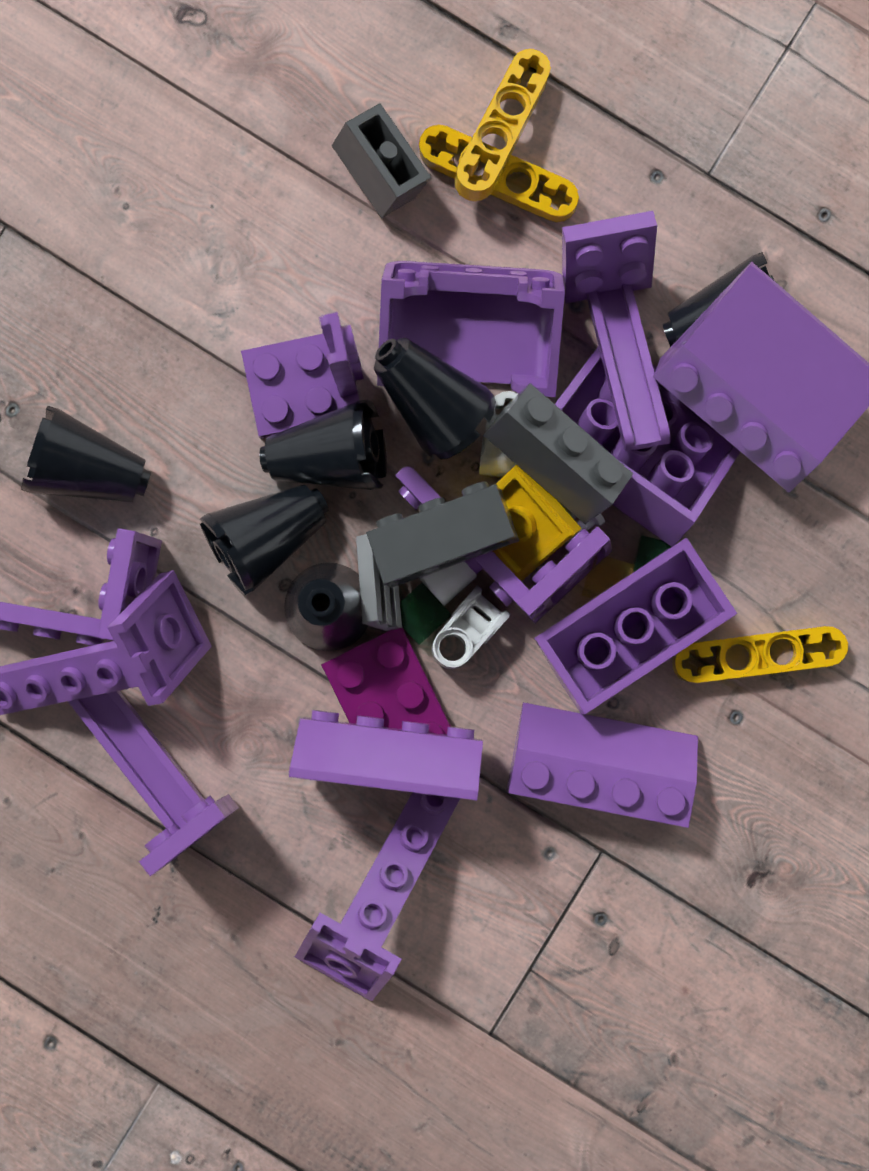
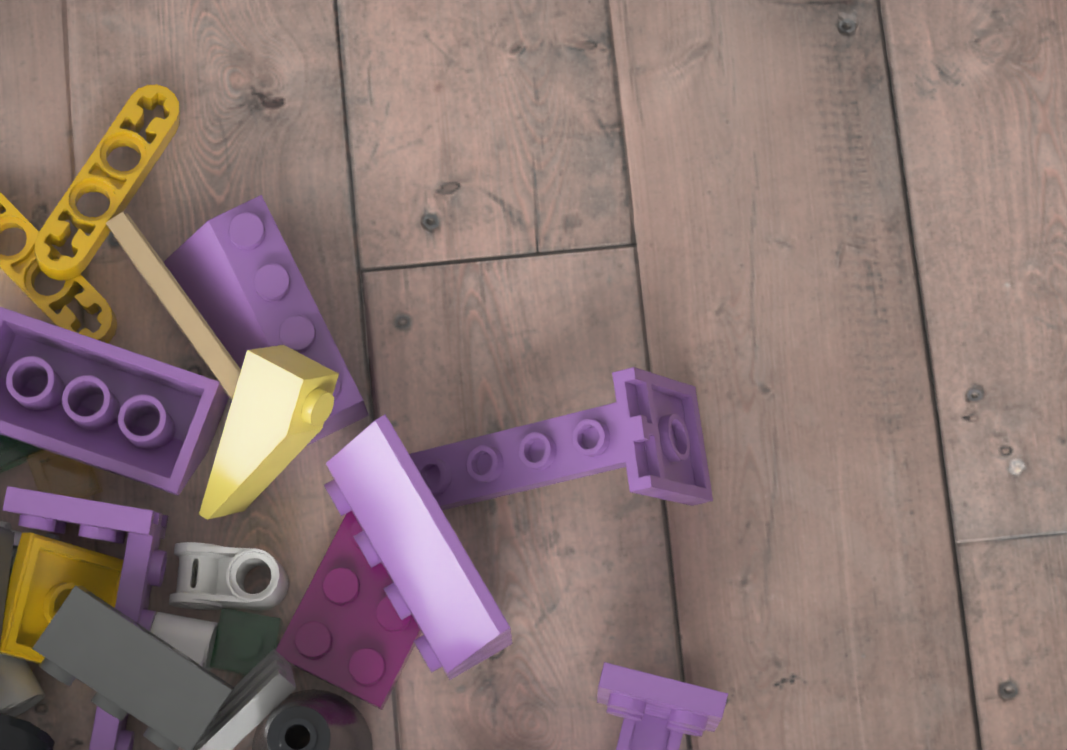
camera: 130 degrees left, 10 degrees down
(538, 732) = (271, 419): none -> light yellow slope
(650, 724) = (176, 302): none -> tan tile
(778, 737) = (102, 178): none -> yellow beam

